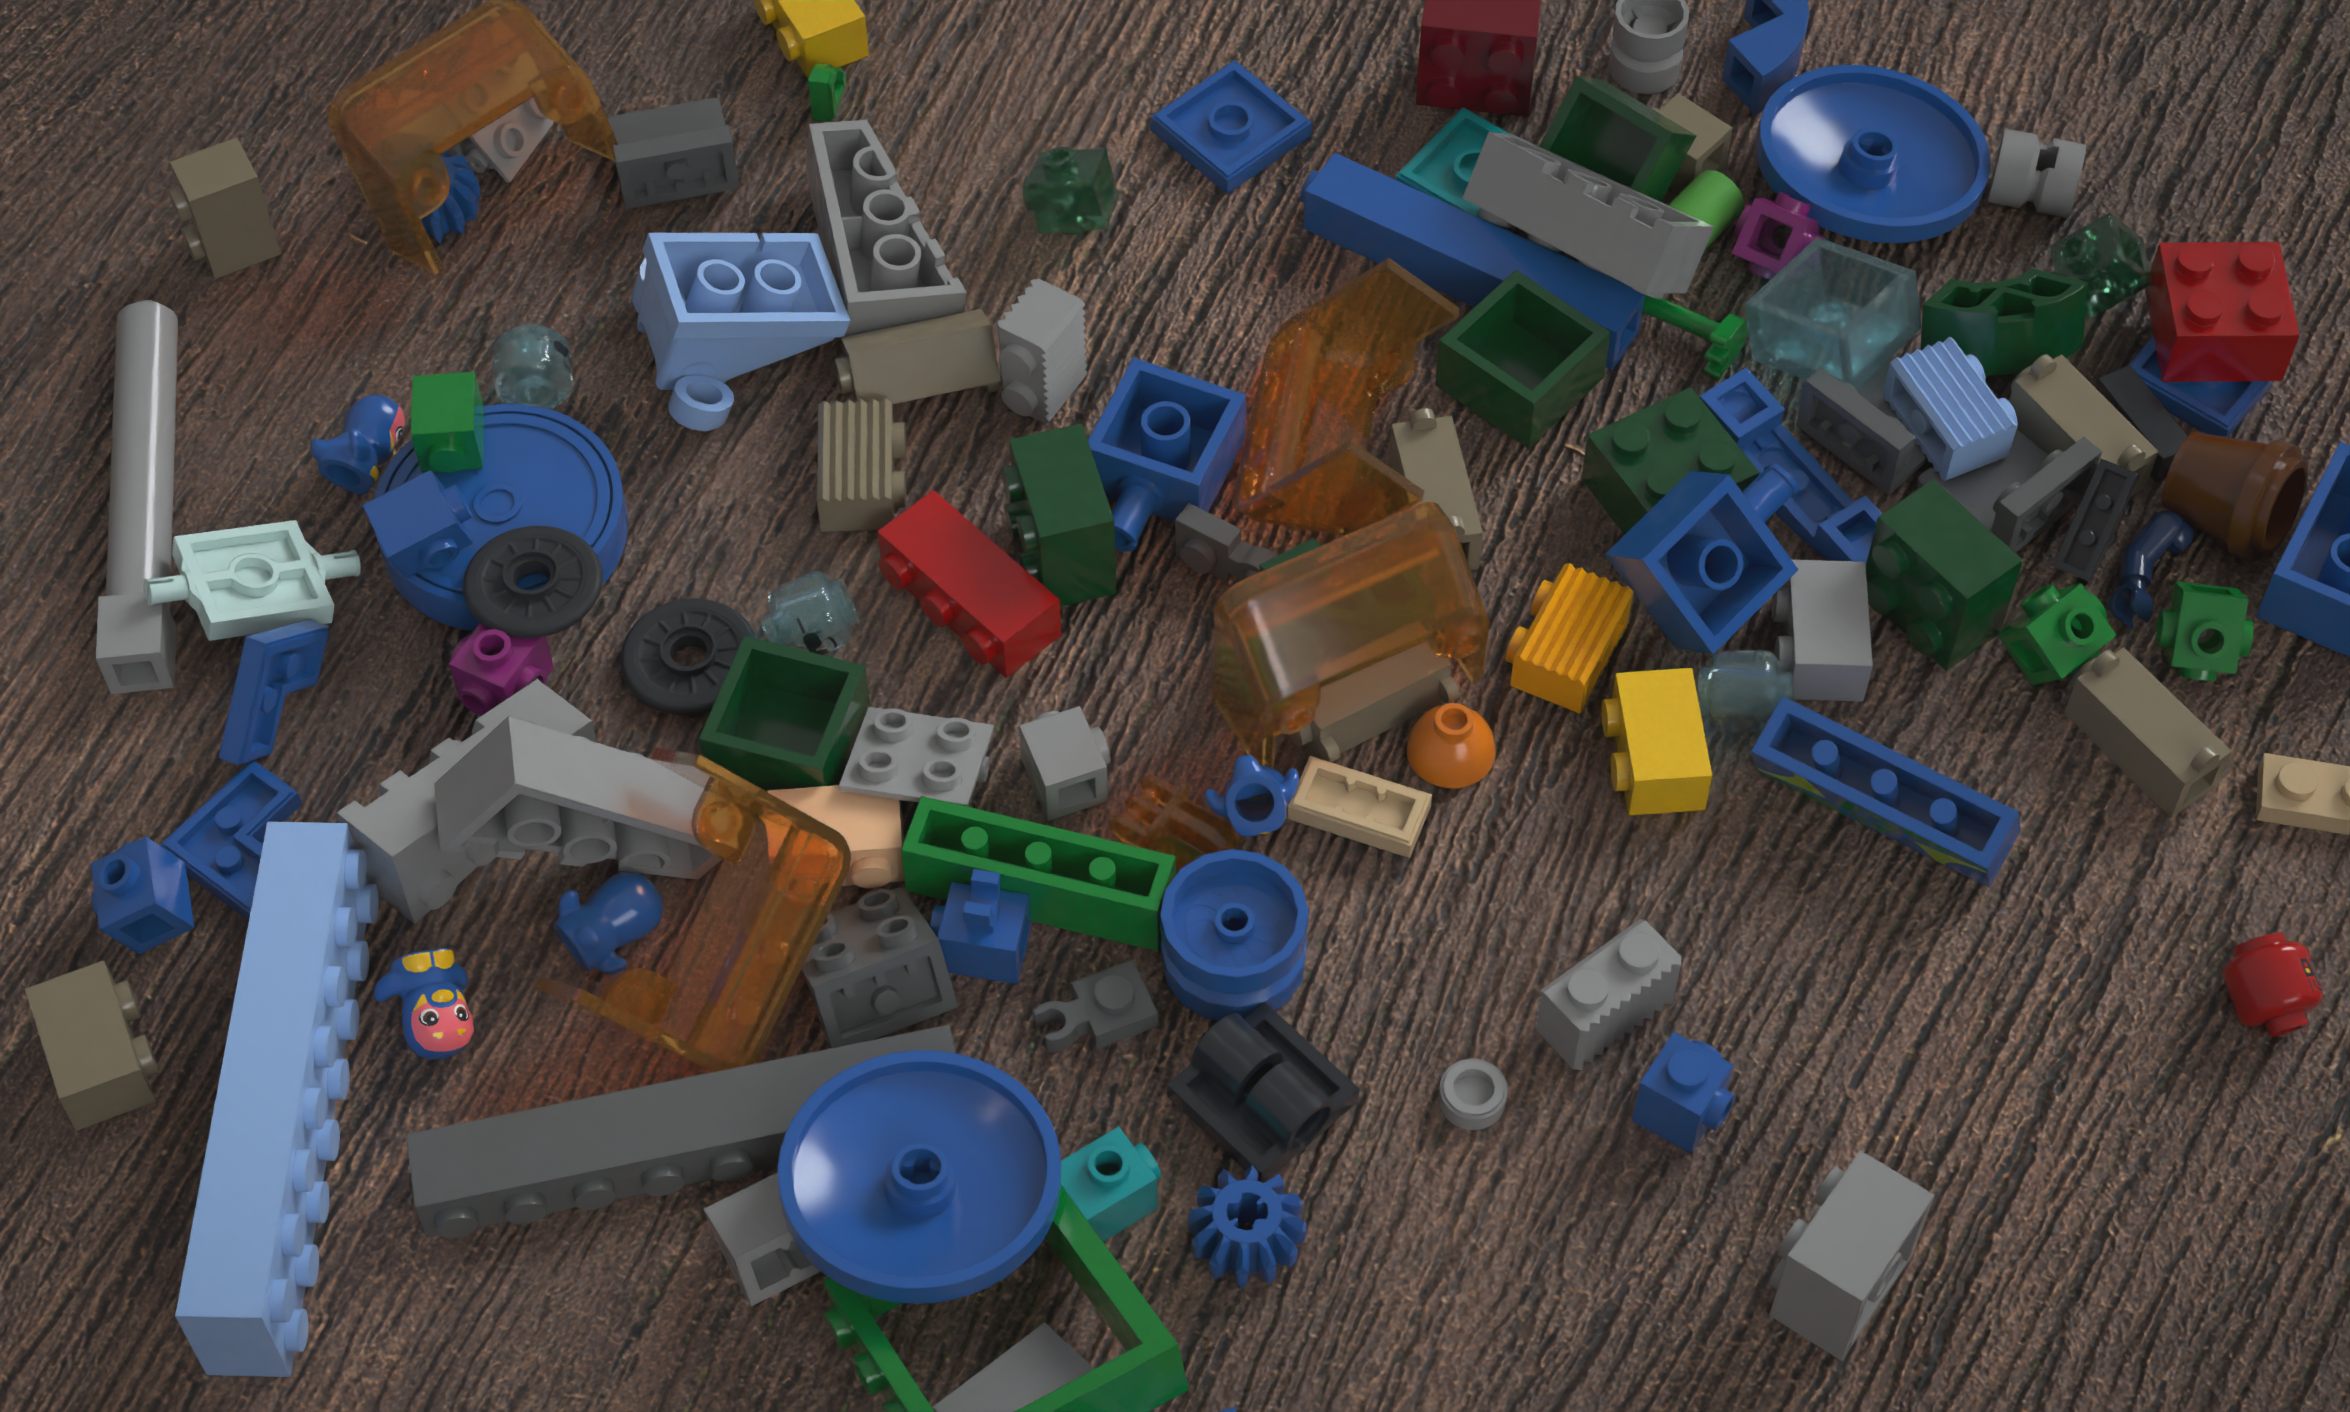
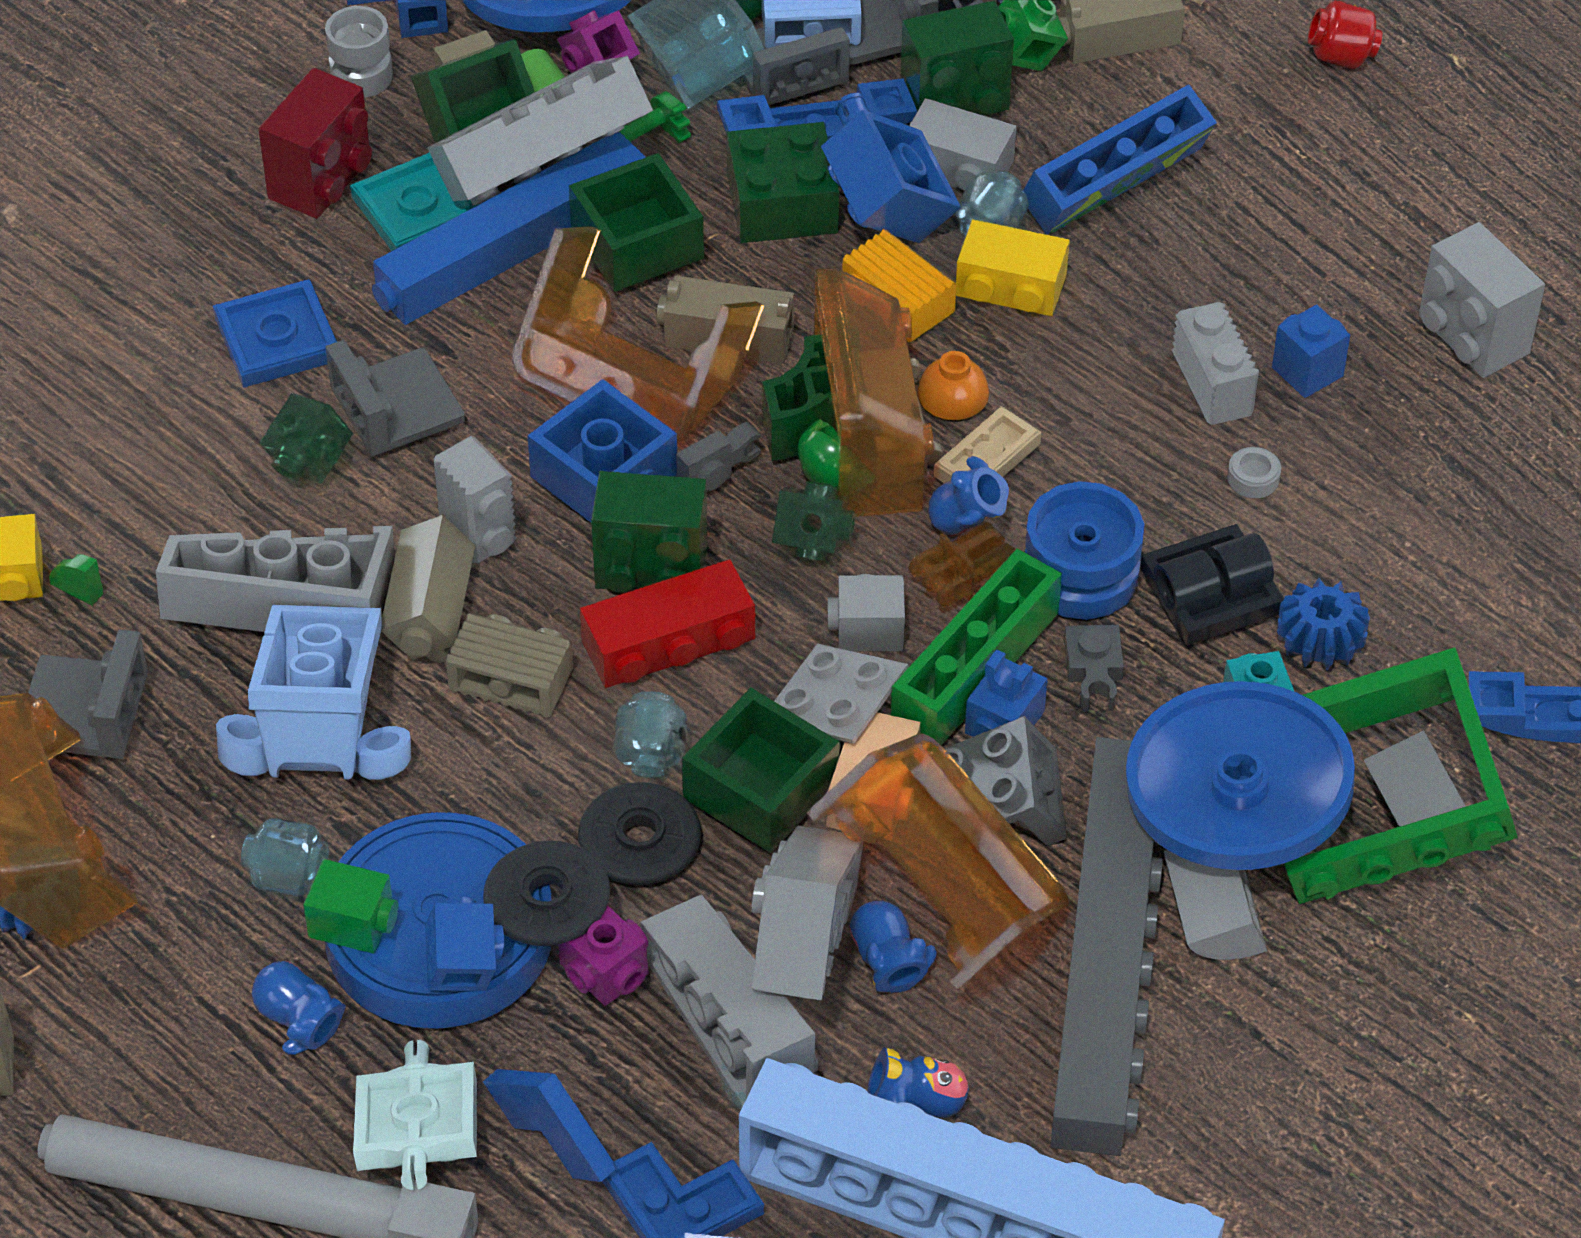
camera: 70 degrees left, 5 degrees down
(1164, 661) = (794, 523): none -> clear green brick
(1170, 242) = (392, 399): none -> dark grey bracket

